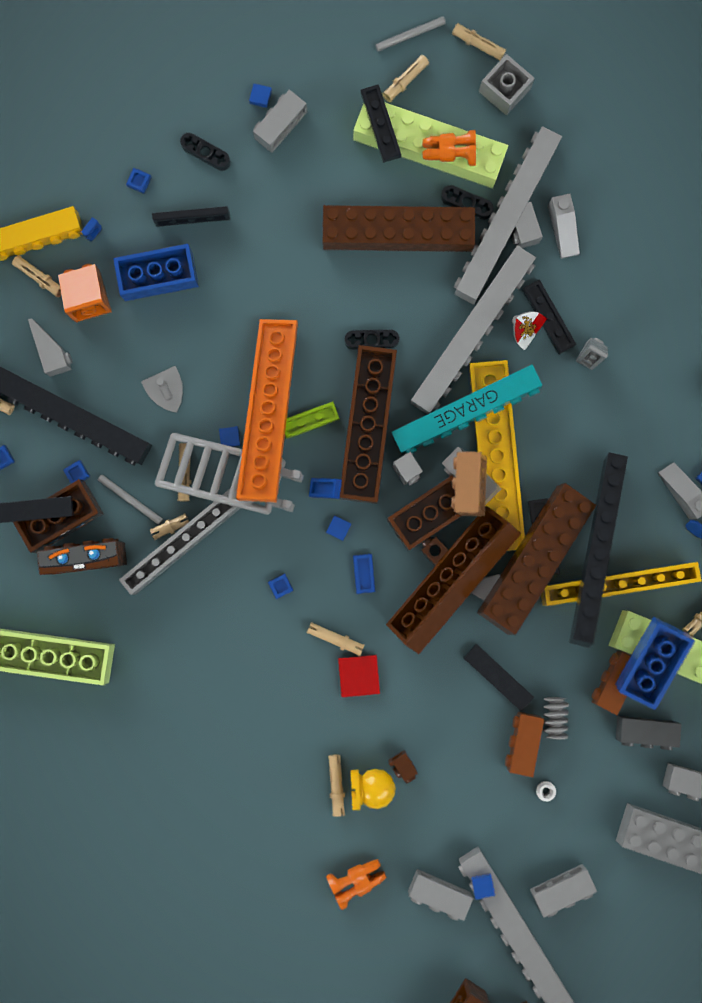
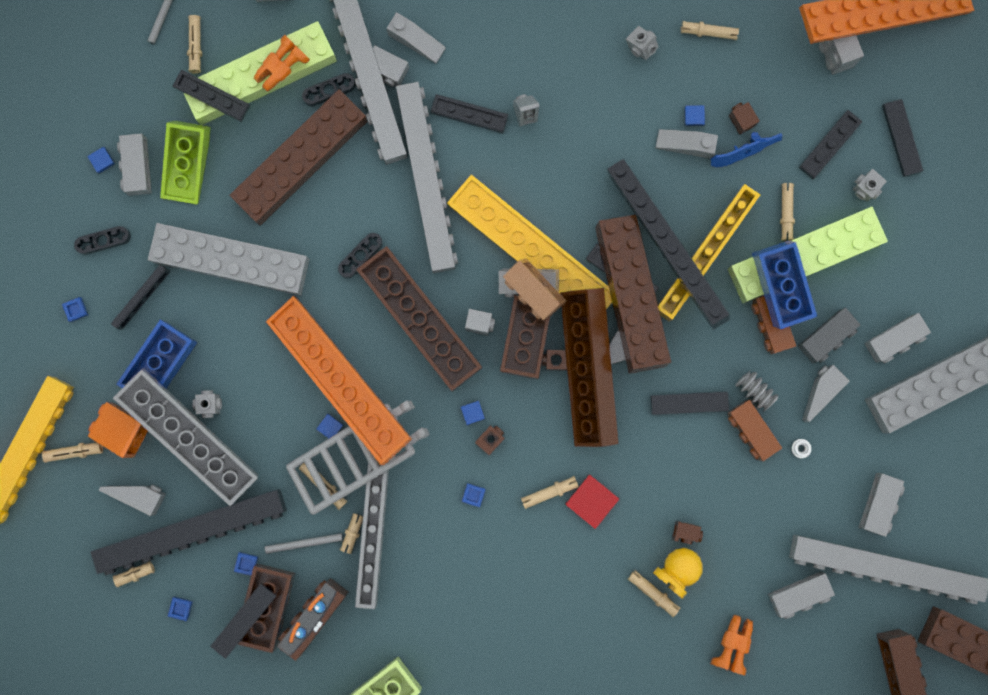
camera: 45 degrees left, 0 degrees up
(91, 230) = (77, 379): blue tile -> none
(123, 341) = (186, 436): none -> light grey brick
(165, 389) = (249, 439): light grey shield -> none
(166, 340) = (214, 404): none -> light grey brick
(278, 250) = (228, 259): none -> light grey brick
(311, 419) = (375, 355): lime tile -> none
(316, 152) = (184, 161): none -> lime slope
(324, 556) = (489, 447): none -> reddish brown brick
(325, 488) = (435, 394): blue tile -> none
(364, 573) = (523, 426): blue tile -> none
(467, 409) = (478, 238): teal brick -> none
(483, 886) = (823, 558): blue tile -> none
(526, 327) = (461, 137): shield -> none
(609, 765) = (824, 389): none -> light grey slope

